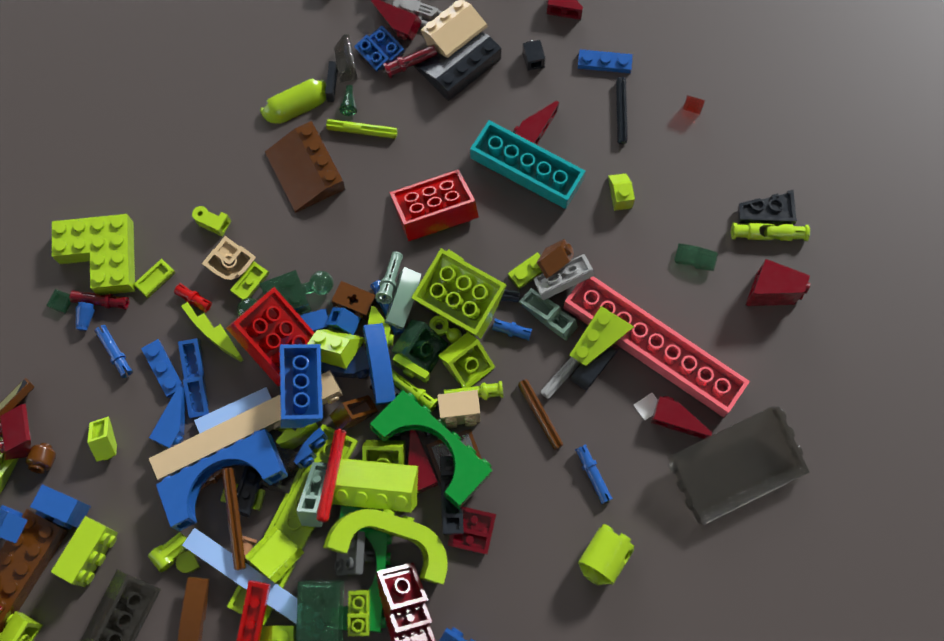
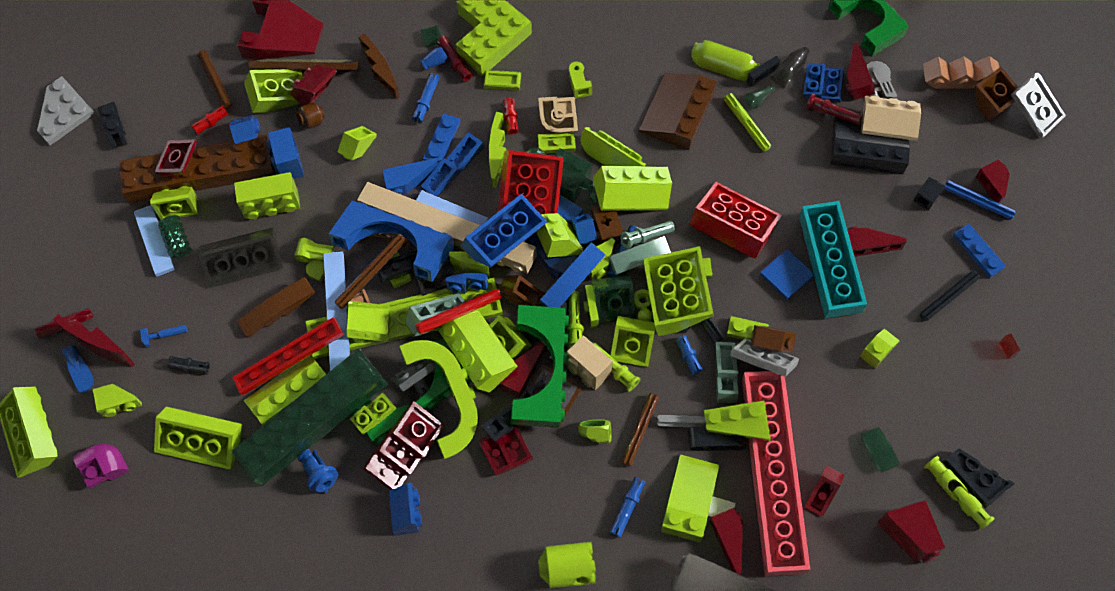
camera: 50 degrees right, 5 degrees down
(54, 366) = (380, 67): none -> reddish brown slope
(298, 247) = (608, 150): none -> lime brick
(344, 257) = (633, 187): none -> lime slope
(509, 206) = (787, 274): none -> blue tile
(514, 448) = (596, 430): none -> lime rock
(568, 26) = (979, 200): none -> blue axle
(624, 421) = (690, 498): none -> lime slope
(696, 321) = (824, 491): none -> dark red slope

